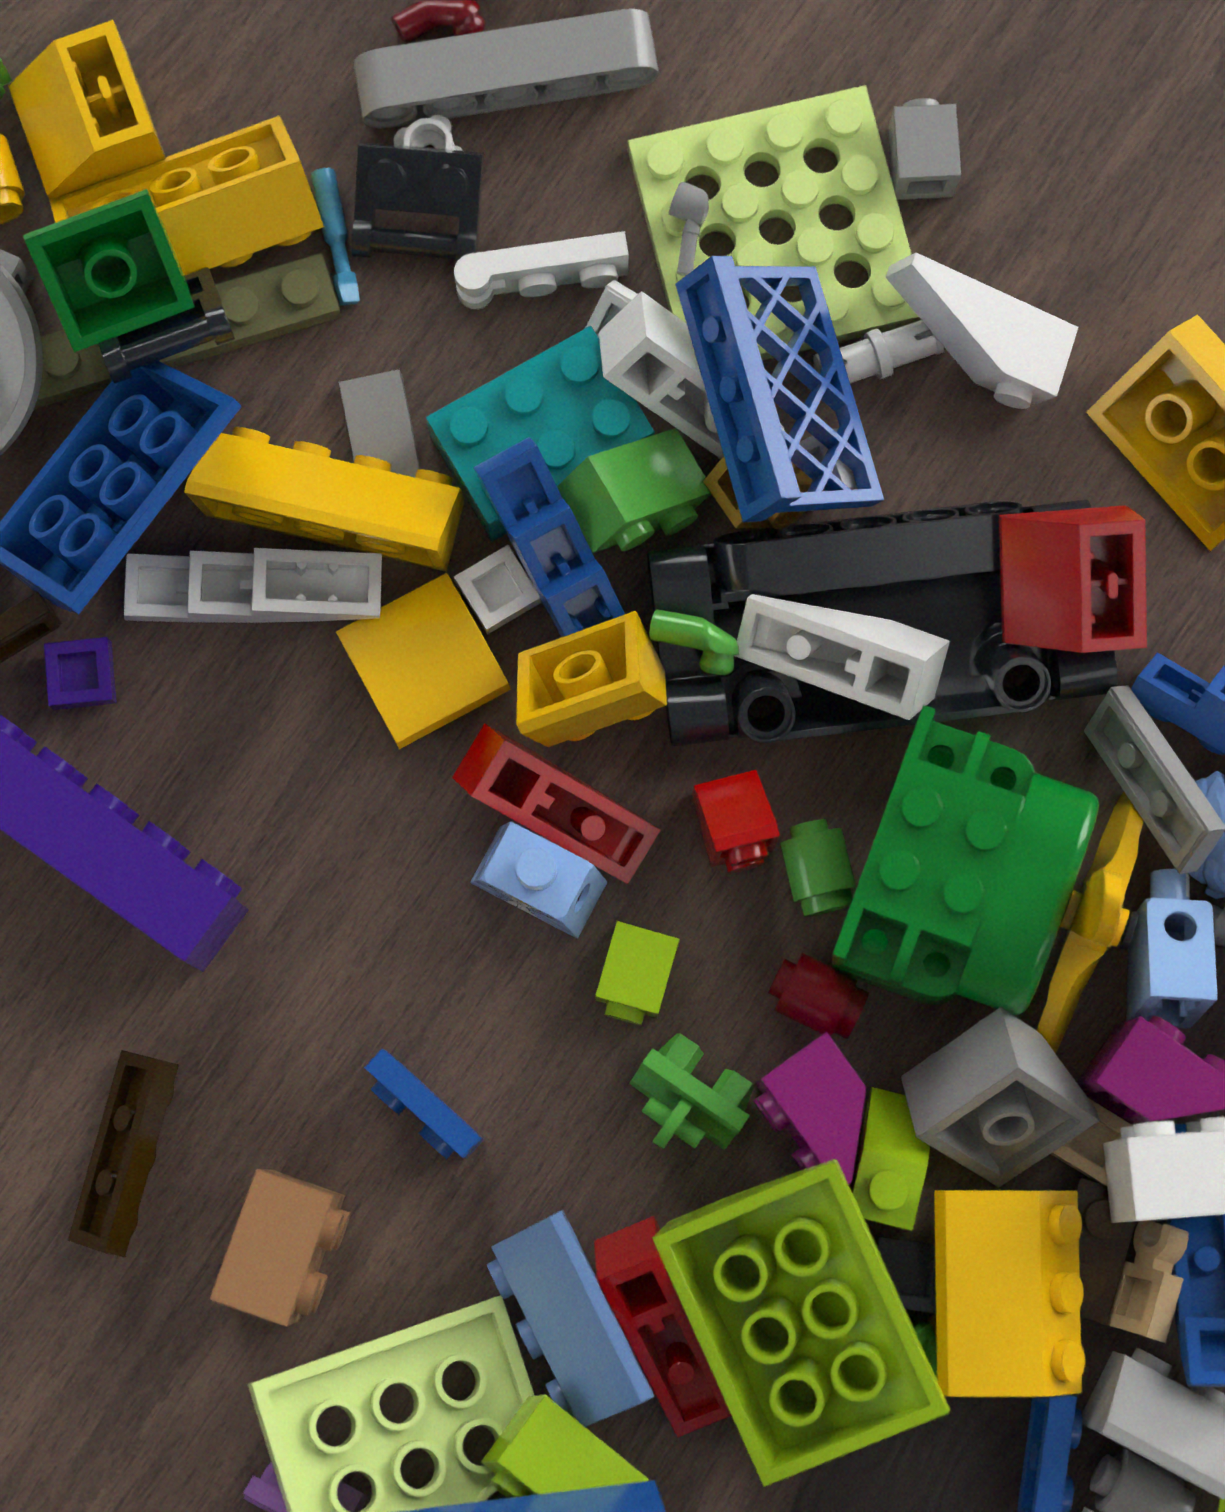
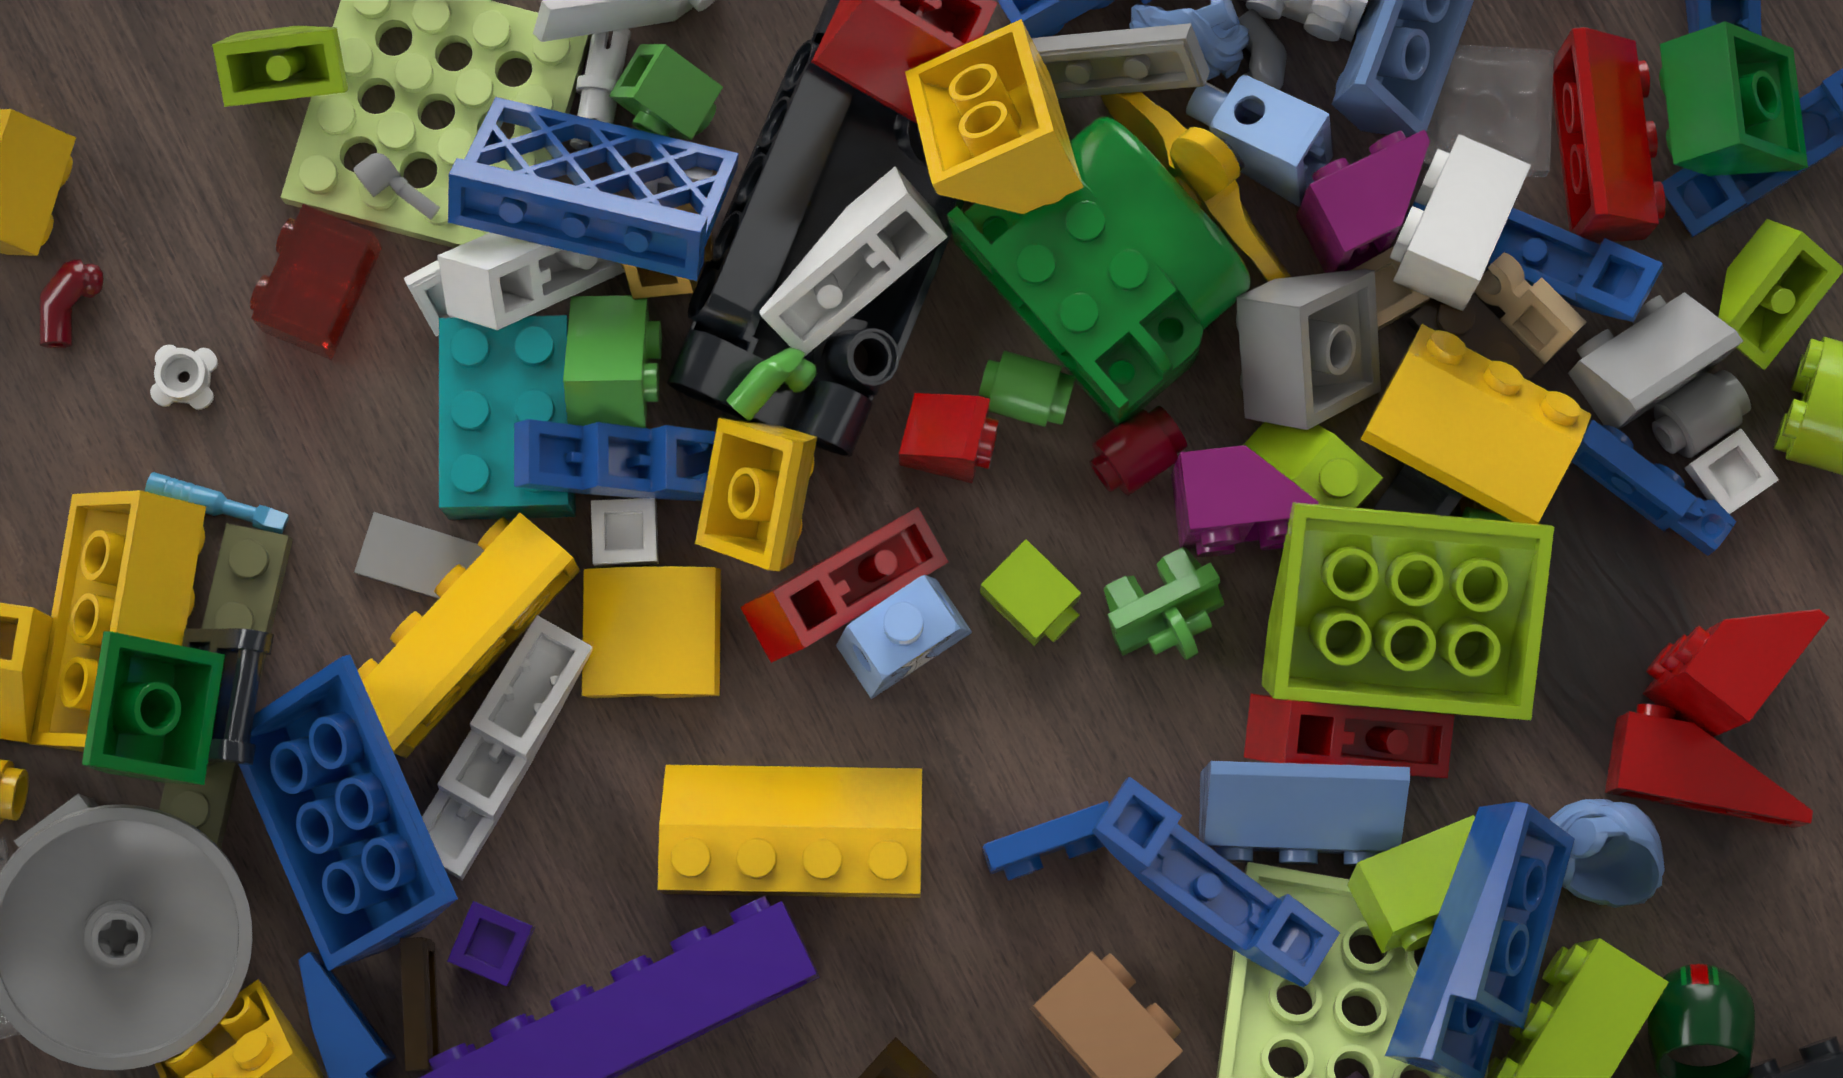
camera: 60 degrees left, 0 degrees up
(313, 876) = (790, 831): none -> yellow slope
(416, 183) = (213, 402): black plate -> none
(454, 1274) = (1211, 890): none -> blue slope
(506, 68) = (150, 268): light grey beam -> none
(540, 268) = (355, 335): white plate -> none
(570, 200) = (314, 281): none -> clear red brick
(736, 69) = (279, 64): none -> lime slope
(902, 410) = (666, 93): none -> bright green brick
(1028, 702) = (994, 124): none -> yellow slope

